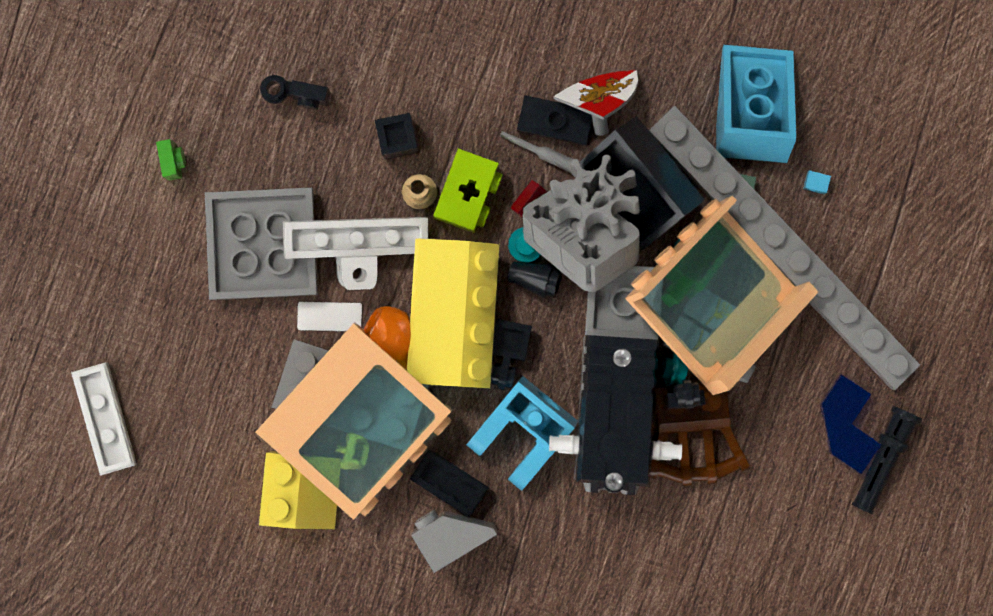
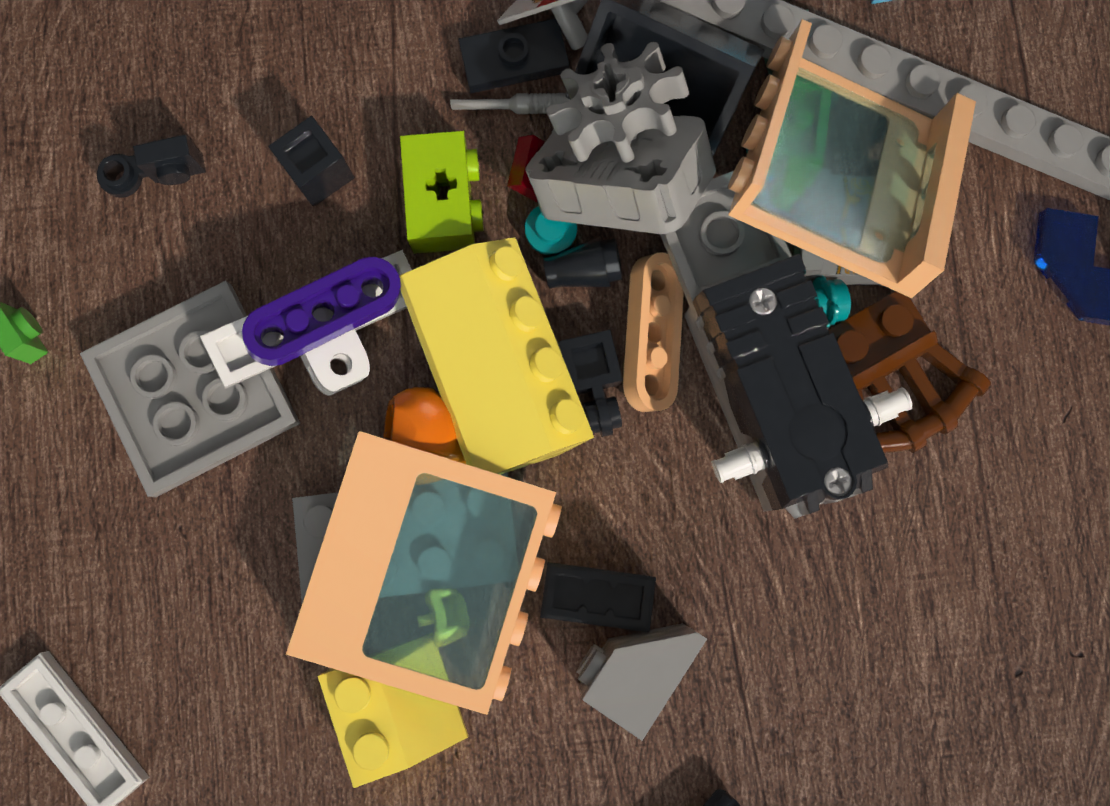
camera: 30 degrees left, 5 degrees down
(328, 316) = (325, 446): white sticker -> none
(378, 234) = (337, 291): none -> dark purple plate
(419, 191) = (374, 221): tan pin -> none
(537, 415) = (674, 444): medium azure brick -> none
(555, 355) = (653, 362): none -> light nougat plate
(685, 396) = (872, 318): black plate -> none

